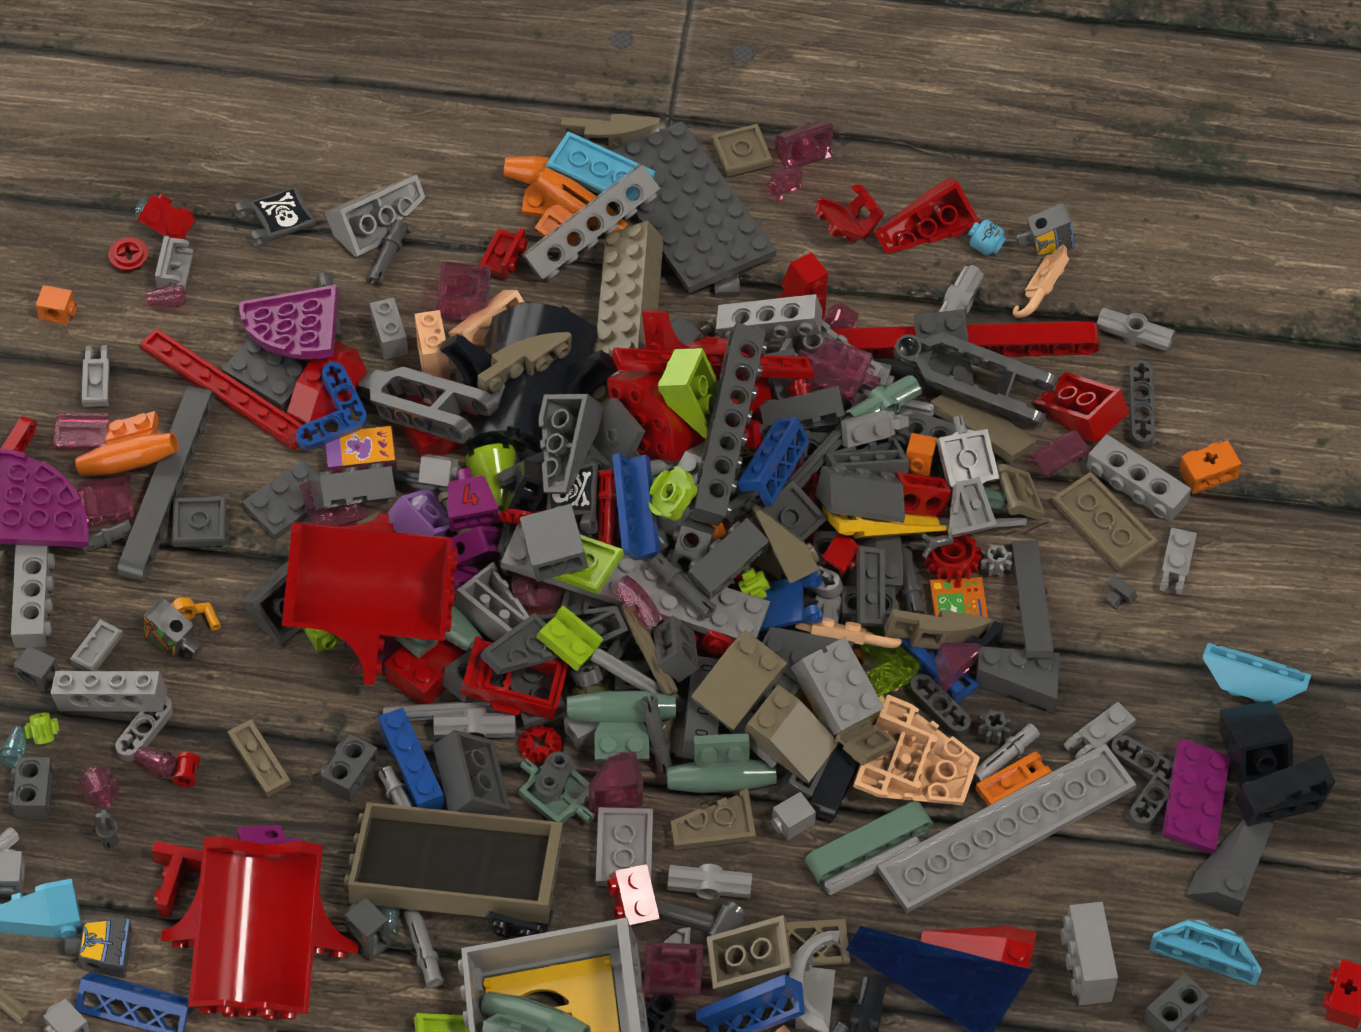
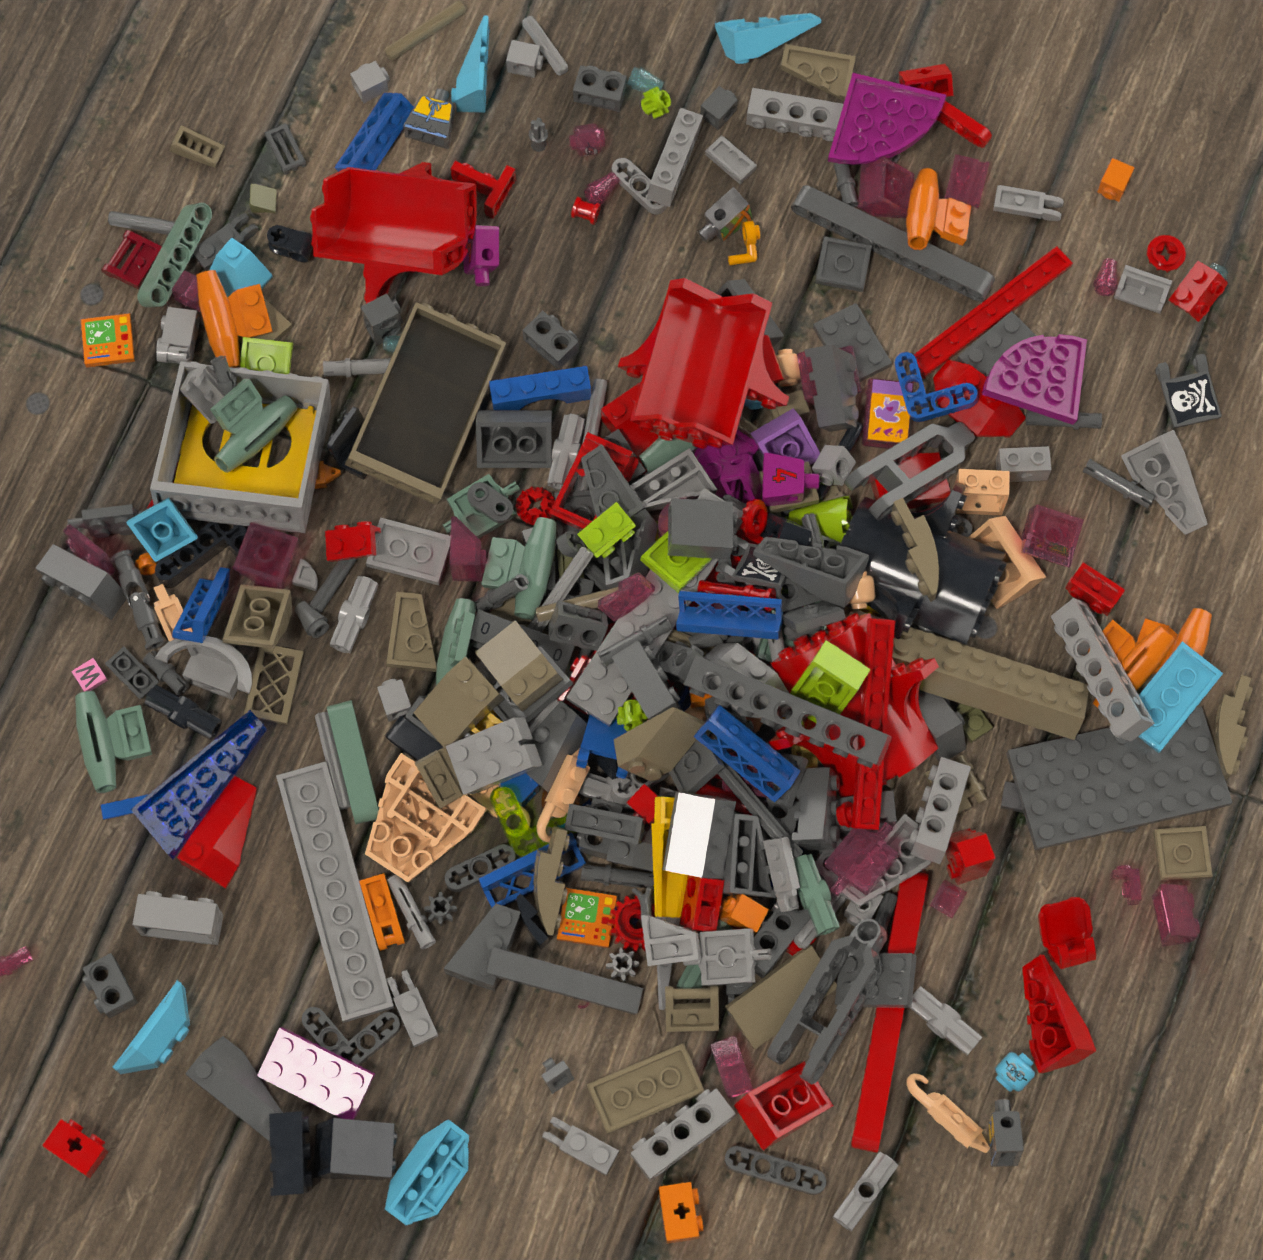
camera: 105 degrees right, 15 degrees up
(259, 758) = (582, 270): dark tan plate -> none
(394, 787) = (518, 371): light grey axle -> none
(672, 505) = (724, 644): lime plate -> none
(954, 661) = (505, 880): clear pink slope -> none

